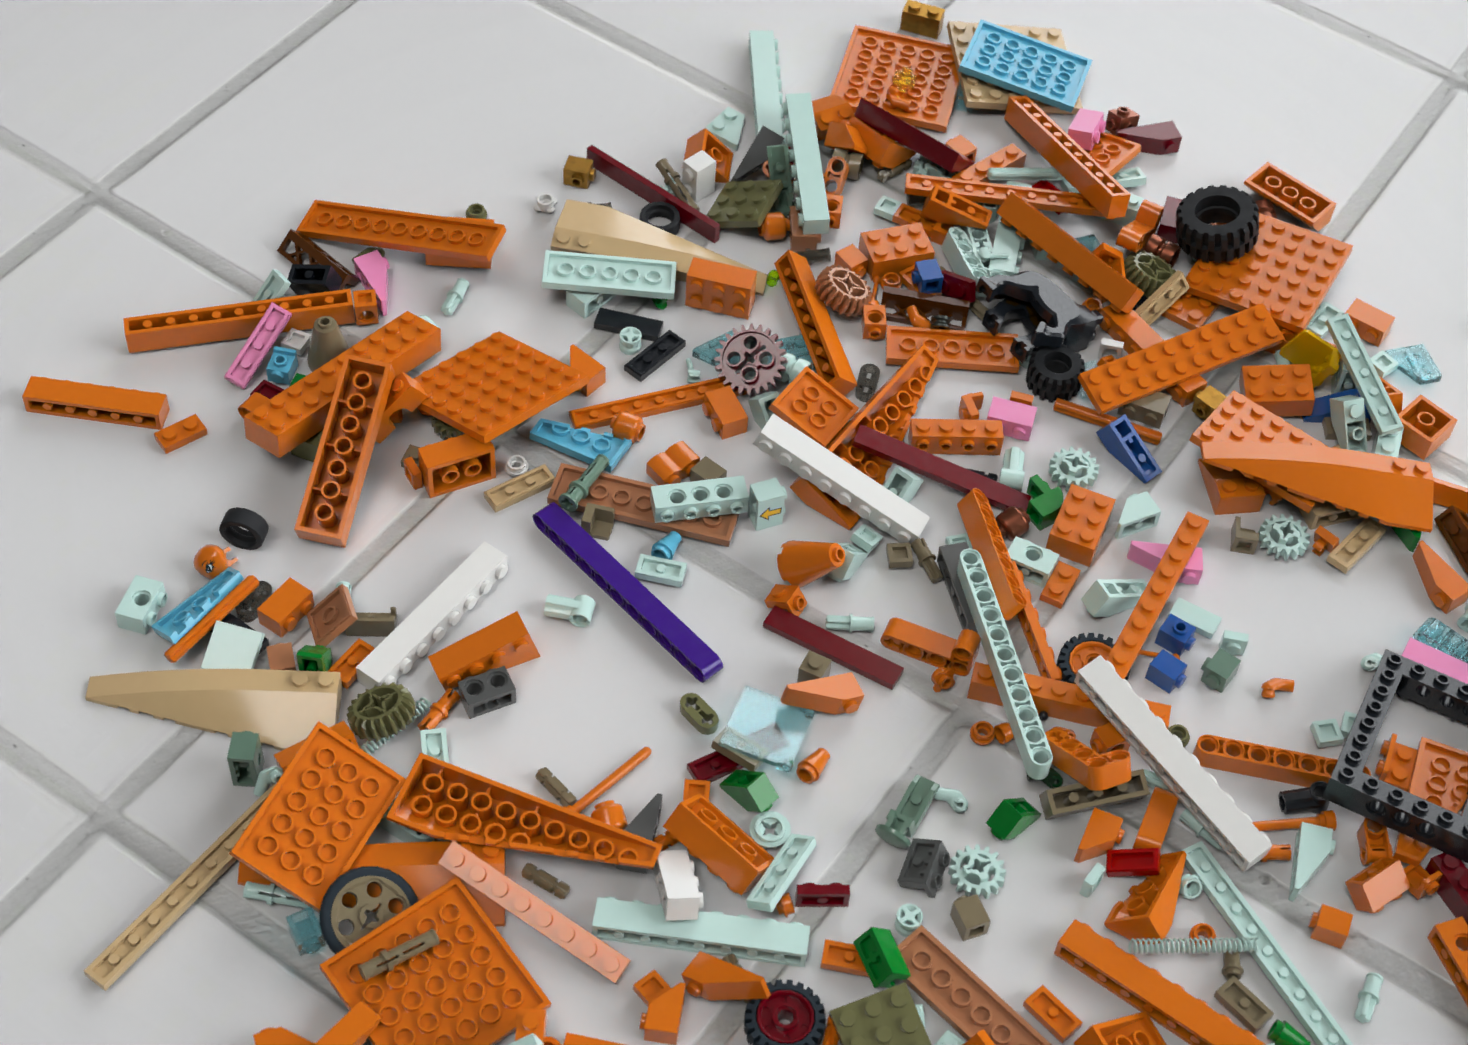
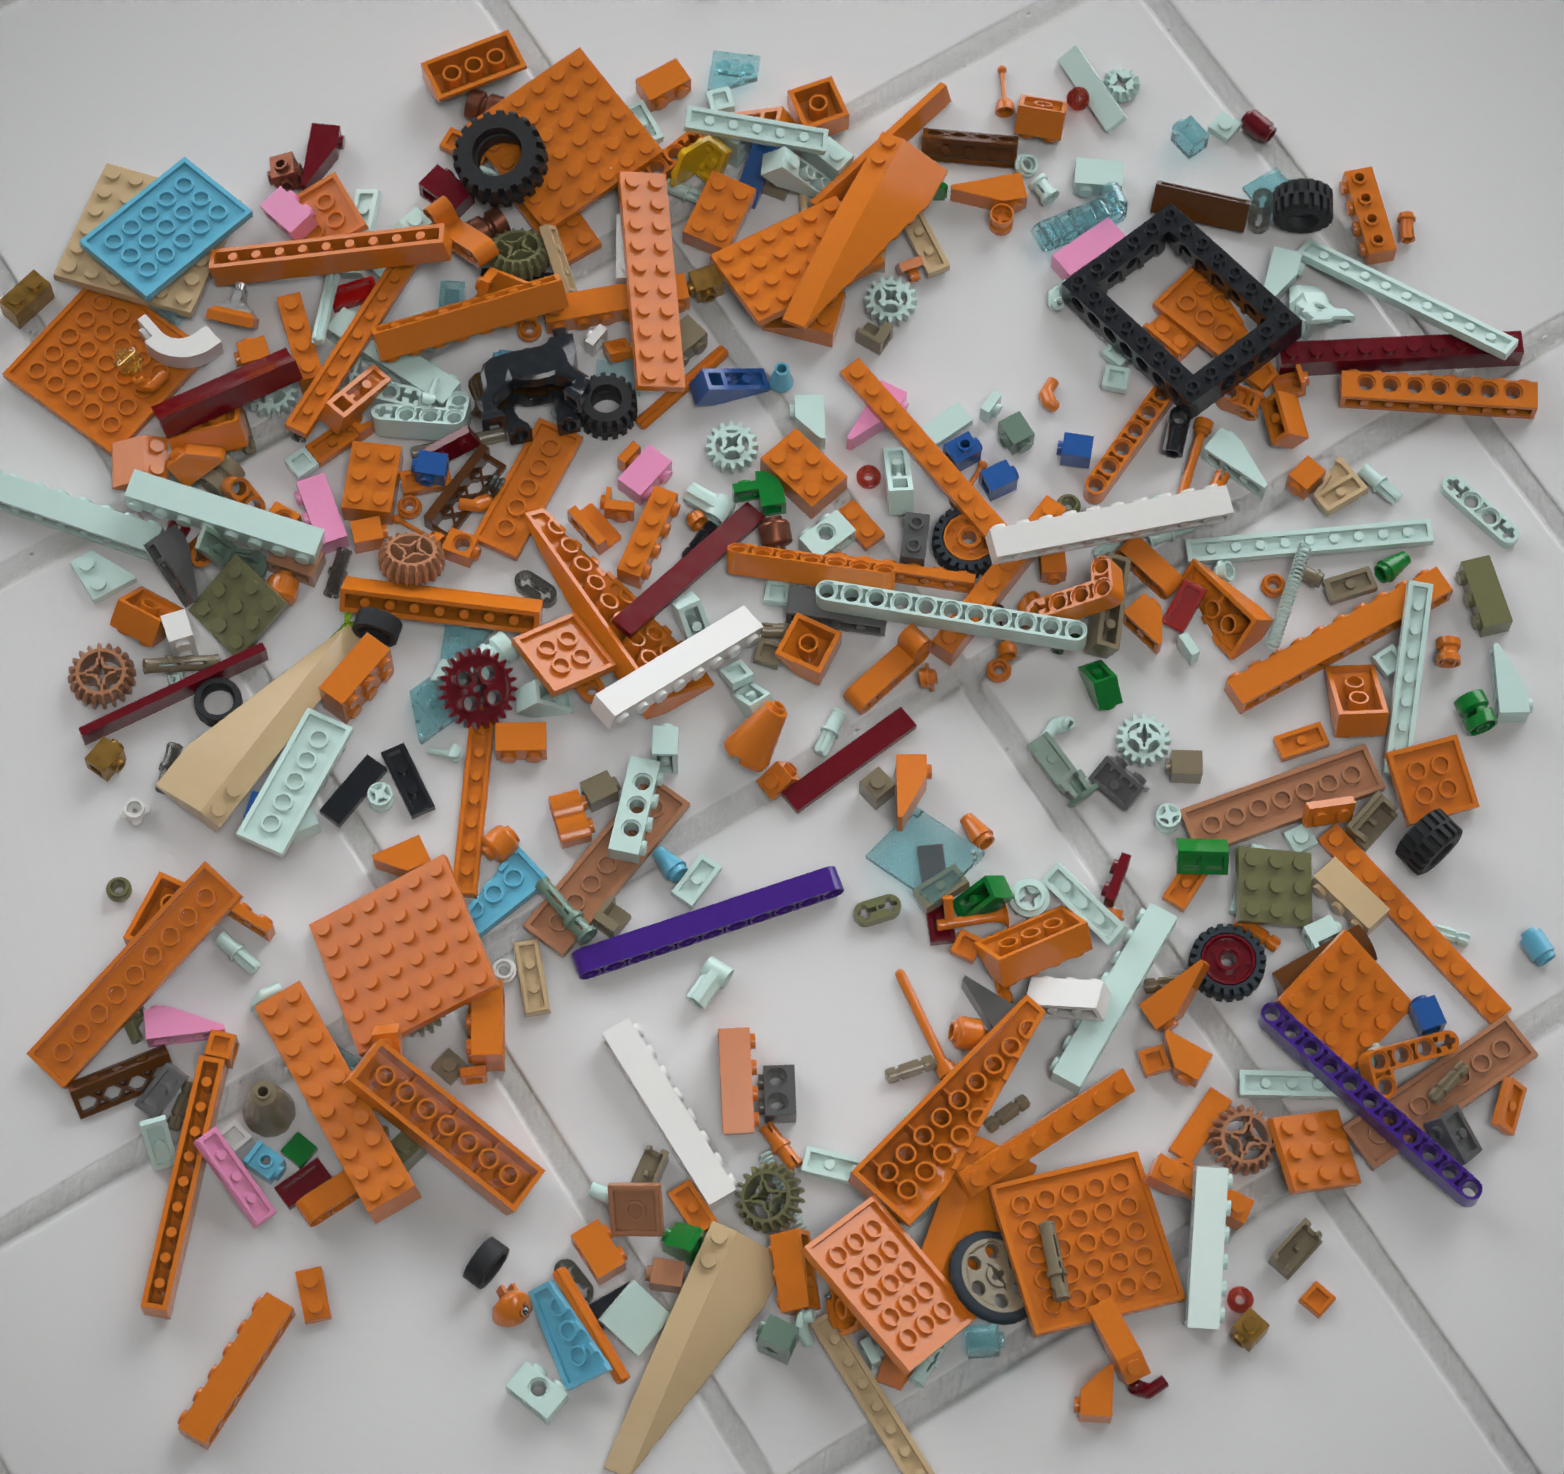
camera: 65 degrees left, 15 degrees up
(489, 286) = (259, 924): none -> orange plate
(643, 148) = (121, 676): none -> nougat gear
(739, 810) = (952, 922): none -> orange piece
(772, 288) = (379, 624): none -> black tyre
(848, 228) = (321, 511): none -> bright pink brick
(917, 577) = (809, 648): none -> orange slope
(933, 108) = (180, 352): none -> white arch
(943, 401) = (593, 528): none -> orange panel
(988, 465) = (696, 520): none -> orange hinge
(989, 130) = (234, 309): none -> piece
(1067, 622) = (914, 538): none -> dark grey brick
(1108, 570) = (868, 470): none -> clear red plate
(1159, 482) = (781, 378): none -> medium azure cone
(1233, 720) = (1075, 450): none -> blue brick
(1339, 961) = (1339, 488): none -> tan wing
(1419, 593) = (999, 214): none -> orange wheel

